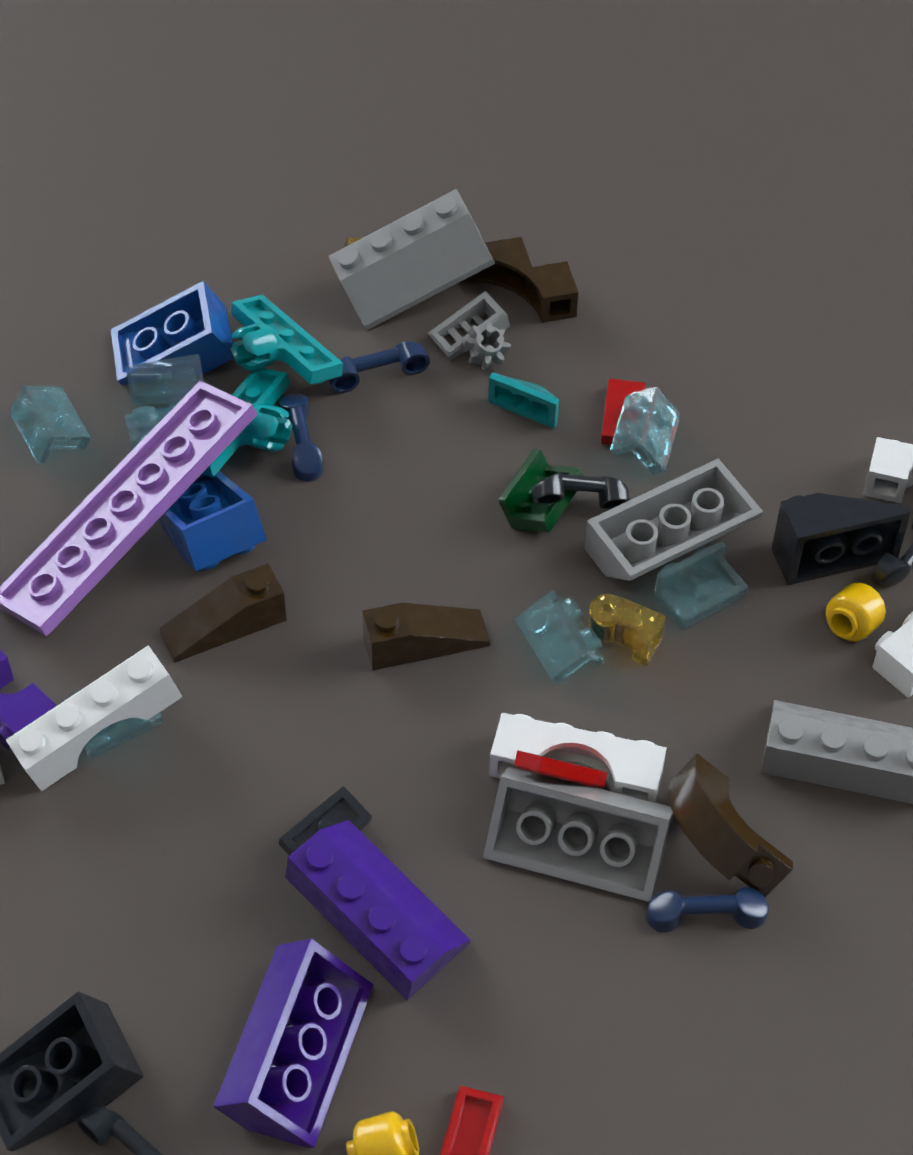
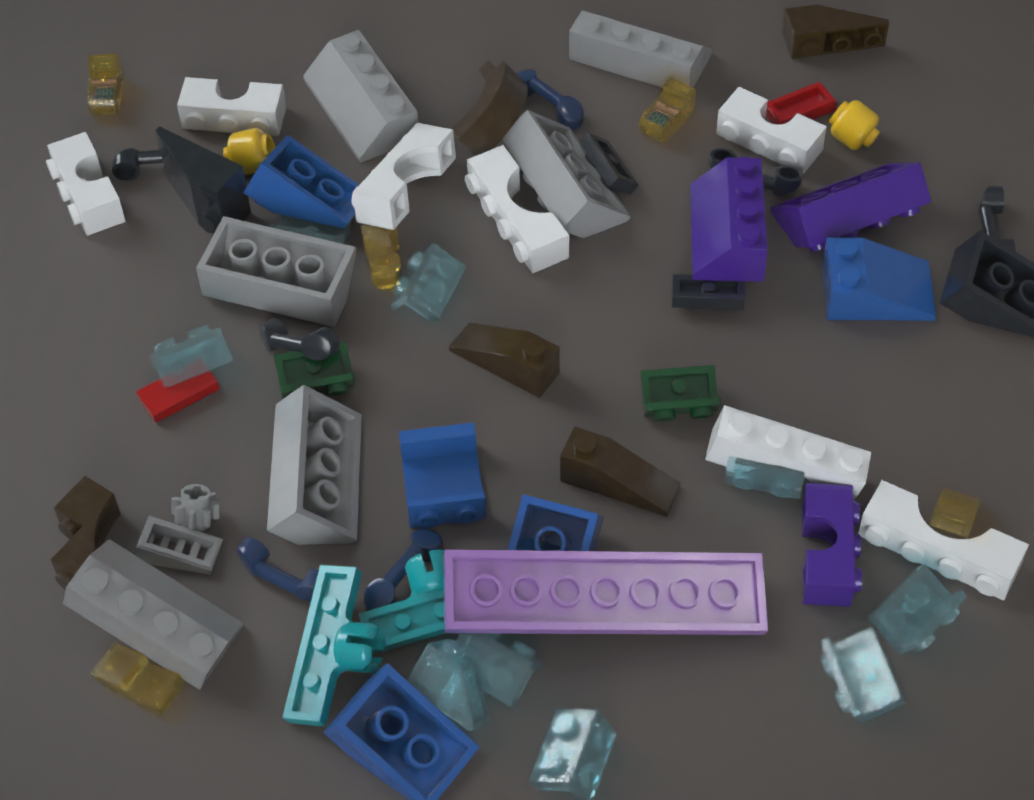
camera: 130 degrees left, 0 degrees up
(186, 975) = (875, 282): none -> blue slope
(244, 714) = (679, 392): none -> dark green bracket
(349, 510) = (442, 475): none -> blue panel
(445, 436) = (314, 470): none -> light grey slope
(458, 984) = (786, 178): none -> black bar
(490, 1044) = (791, 143): none -> white arch
(524, 399) = (218, 452): teal slope -> none
(559, 879) = (604, 158): none -> black plate
(560, 769) = (542, 192): red tile -> none
(577, 992) = (668, 111): none -> clear yellow leg
(676, 641) = (383, 194): none -> white arch
(696, 1047) = (635, 51): none -> light grey slope
(752, 614) = (302, 186): none -> blue slope

